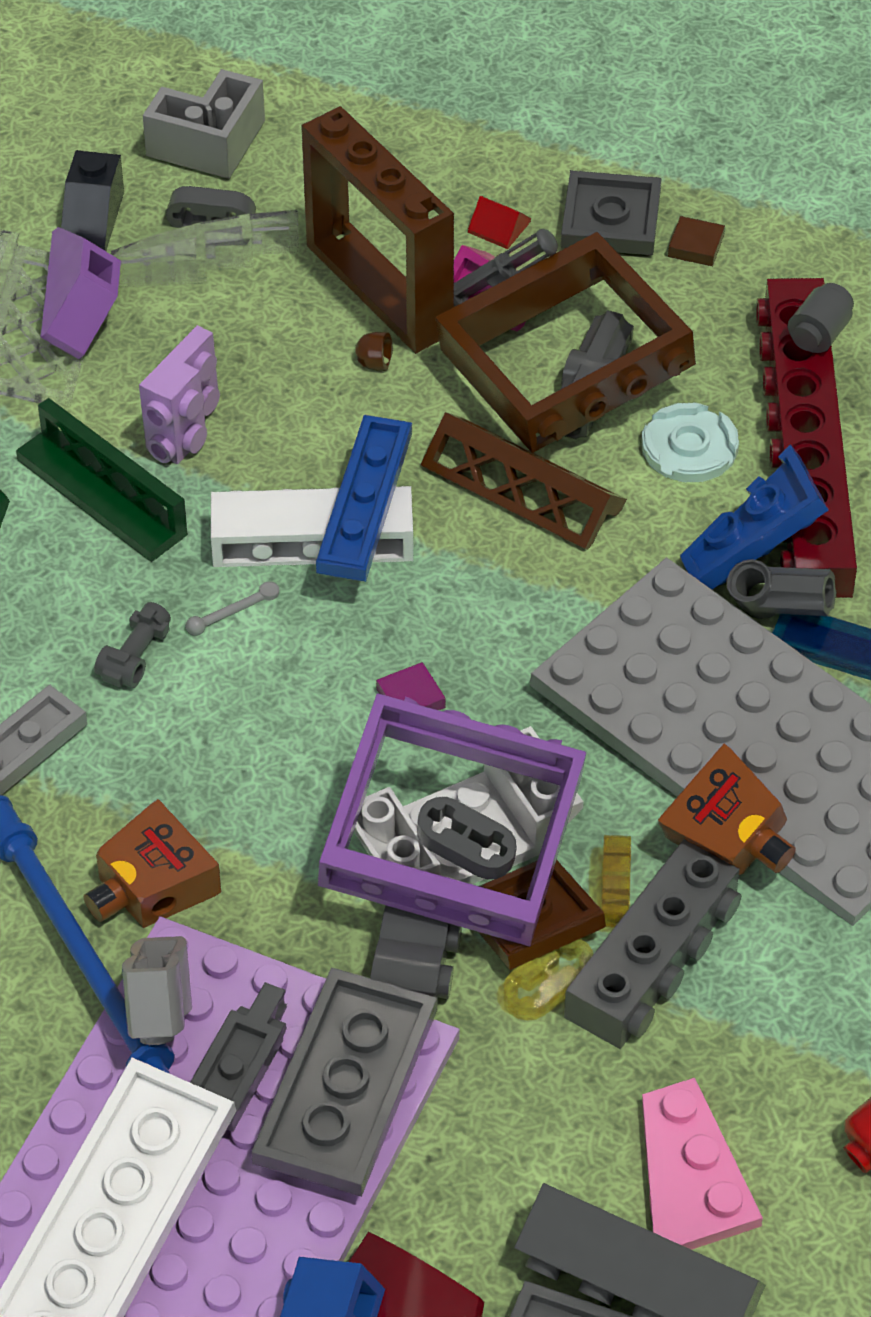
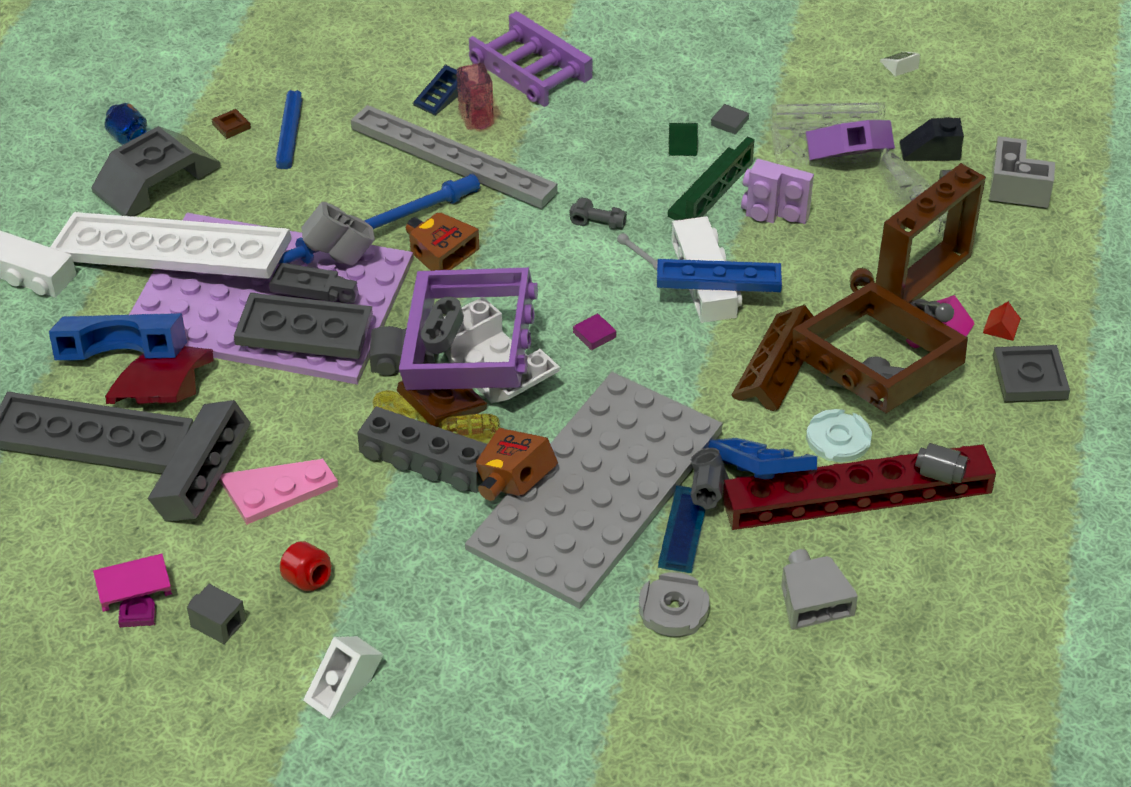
camera: 80 degrees right, 5 degrees down
(696, 241) = (1026, 421): reddish brown tile -> none

